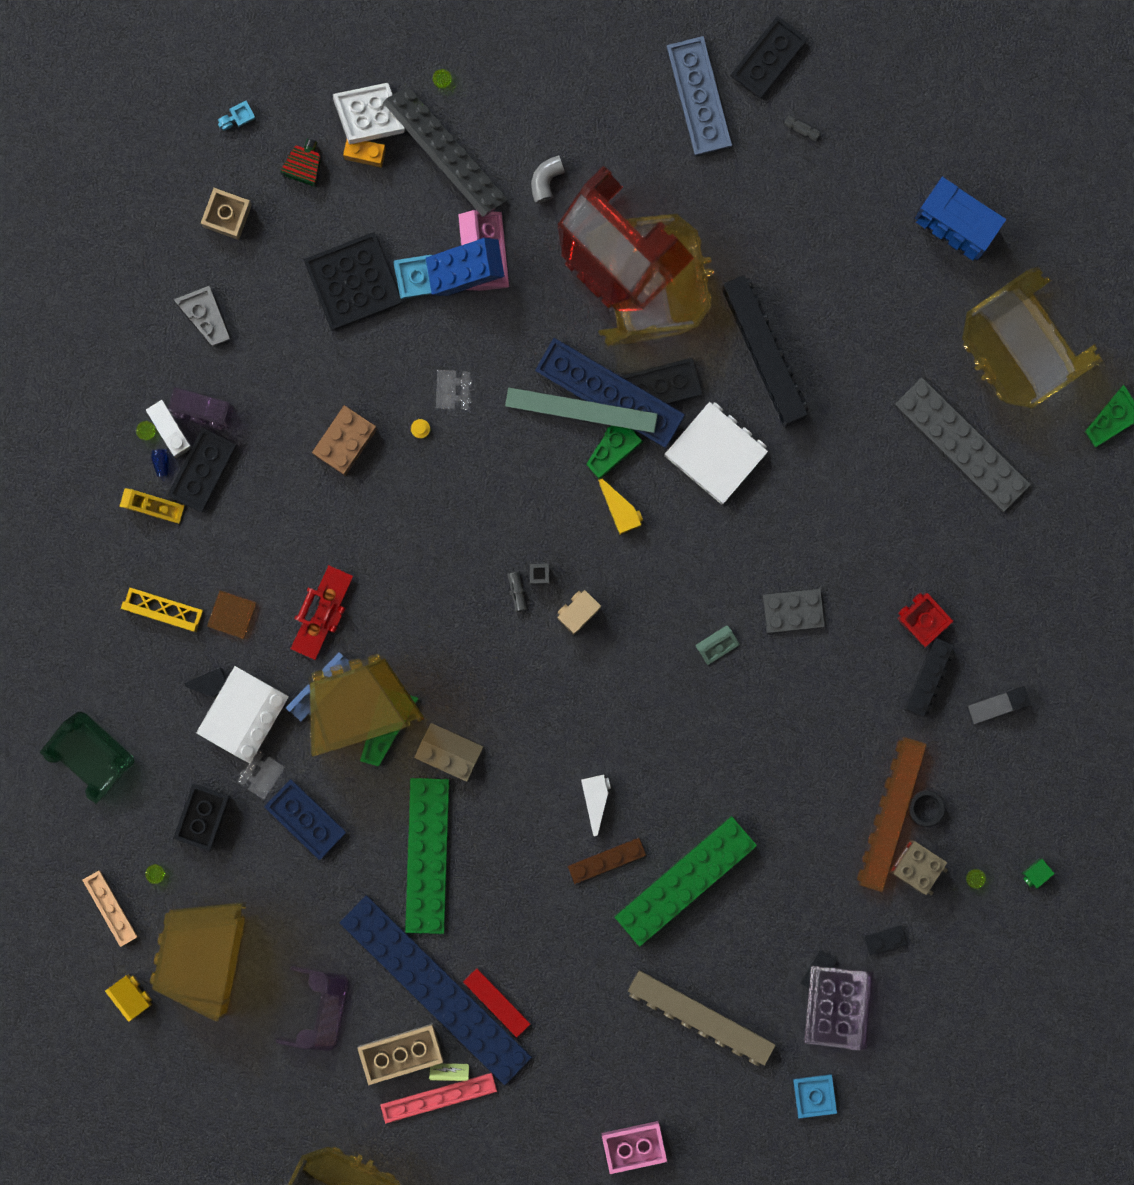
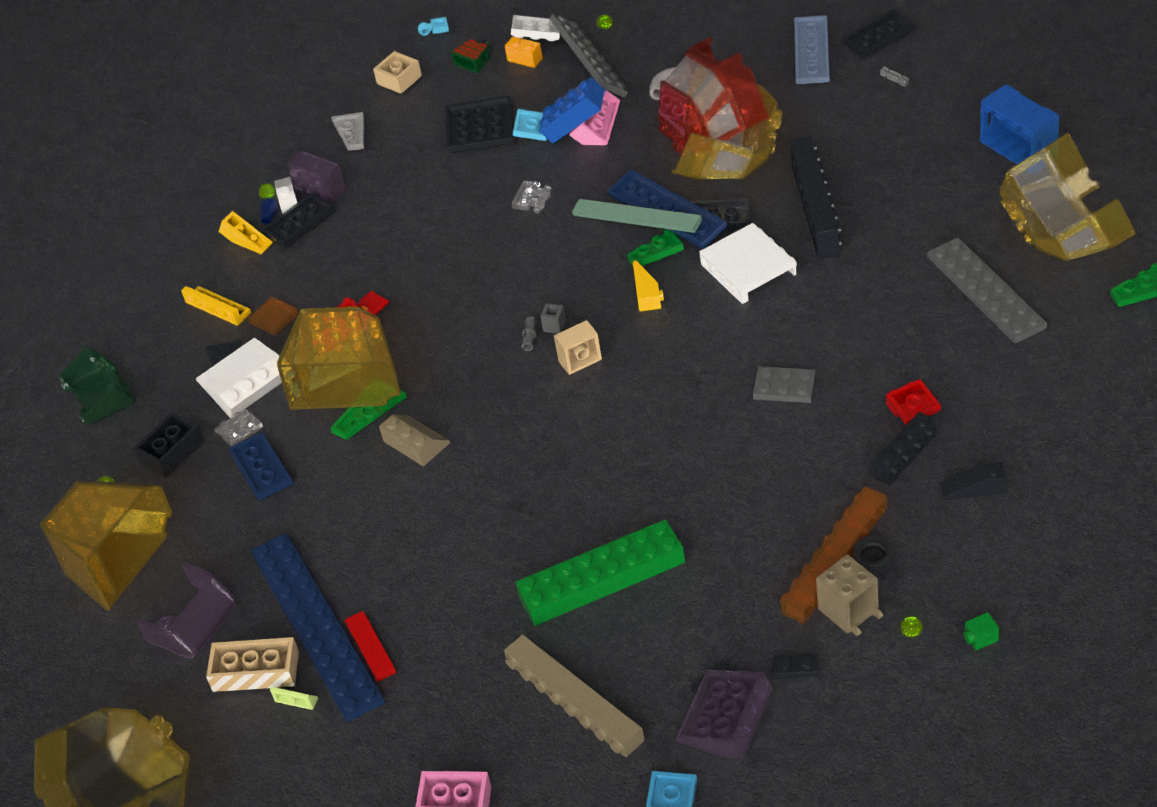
camera: 25 degrees right, 40 degrees down
(110, 908) = (49, 492): light nougat plate -> none
(129, 997) = (25, 569): yellow slope -> none
(344, 440) = (424, 214): medium nougat brick -> none
(420, 428) = (493, 218): yellow plate -> none
(427, 855) = (357, 516): green plate -> none
(438, 1098) = (274, 719): coral tile -> none
(595, 795) = (538, 493): white slope -> none
(606, 860) = (529, 547): reddish brown plate -> none
(717, 645) = (702, 399): sand green slope -> none

